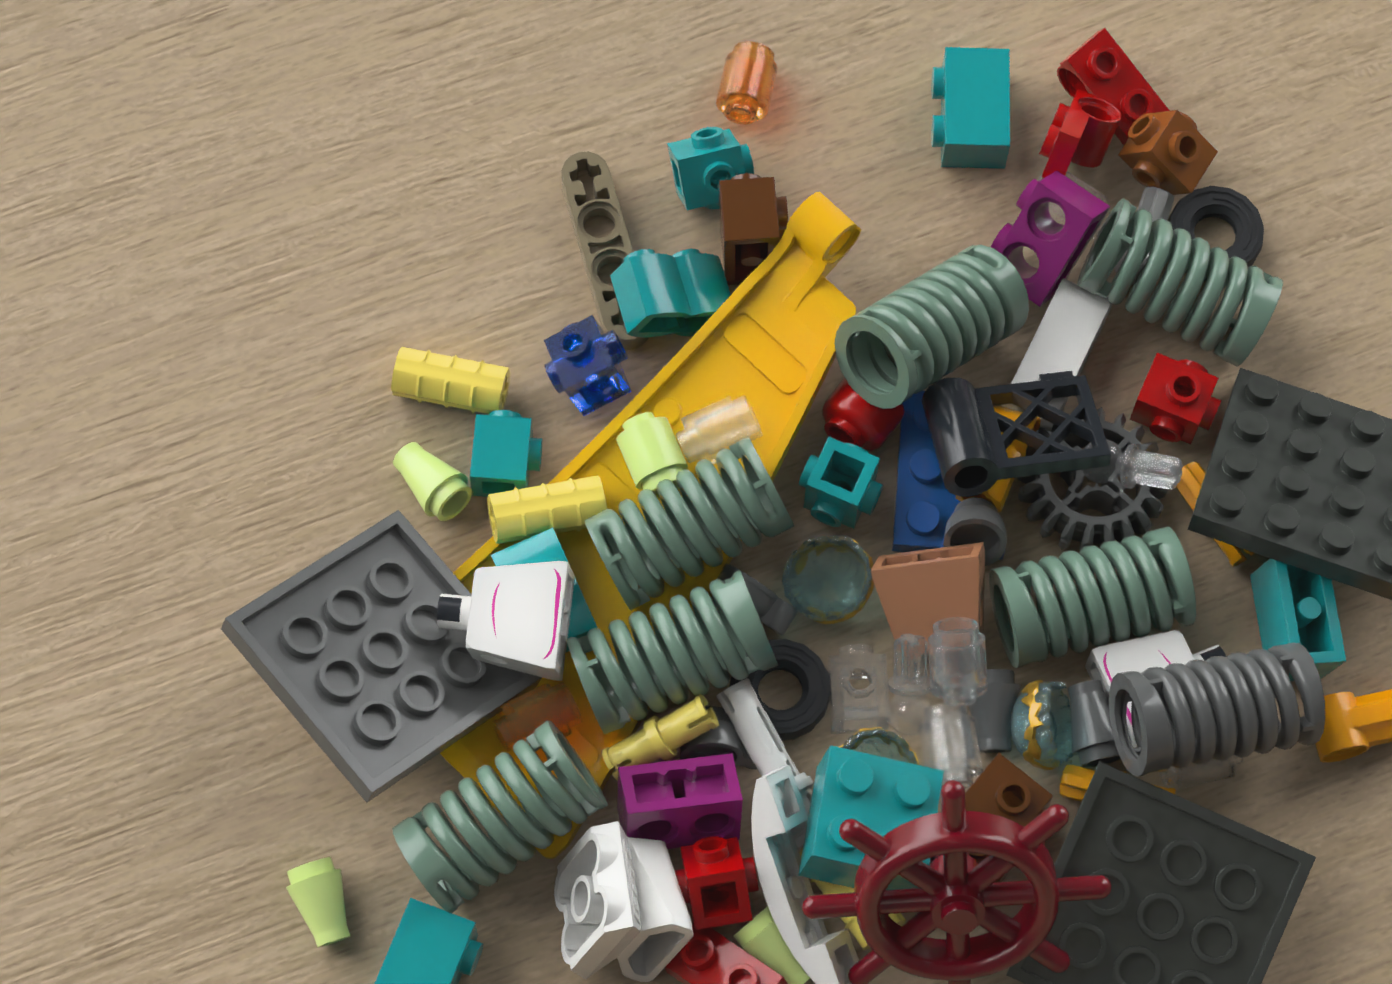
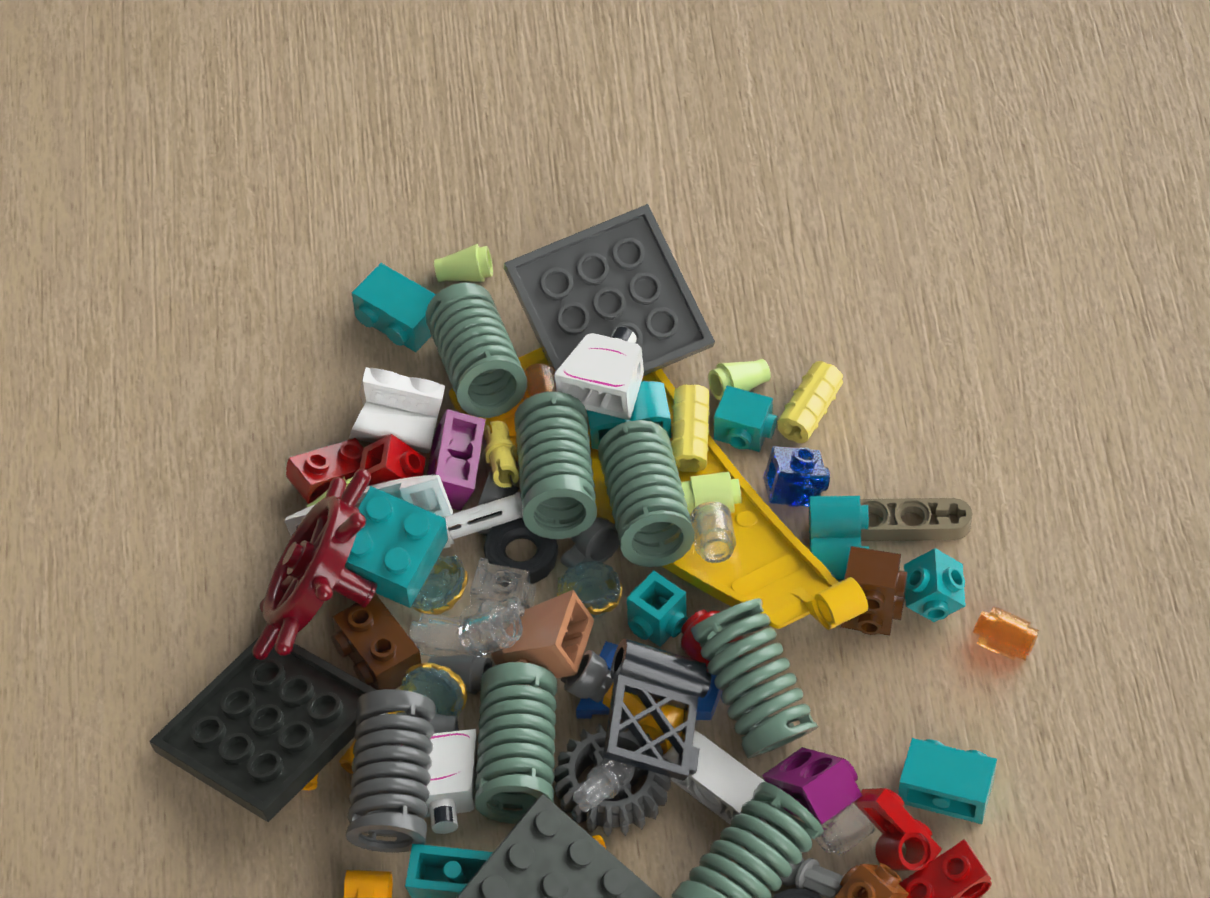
camera: 110 degrees right, 15 degrees down
(1176, 399) = (658, 847): red brick -> none

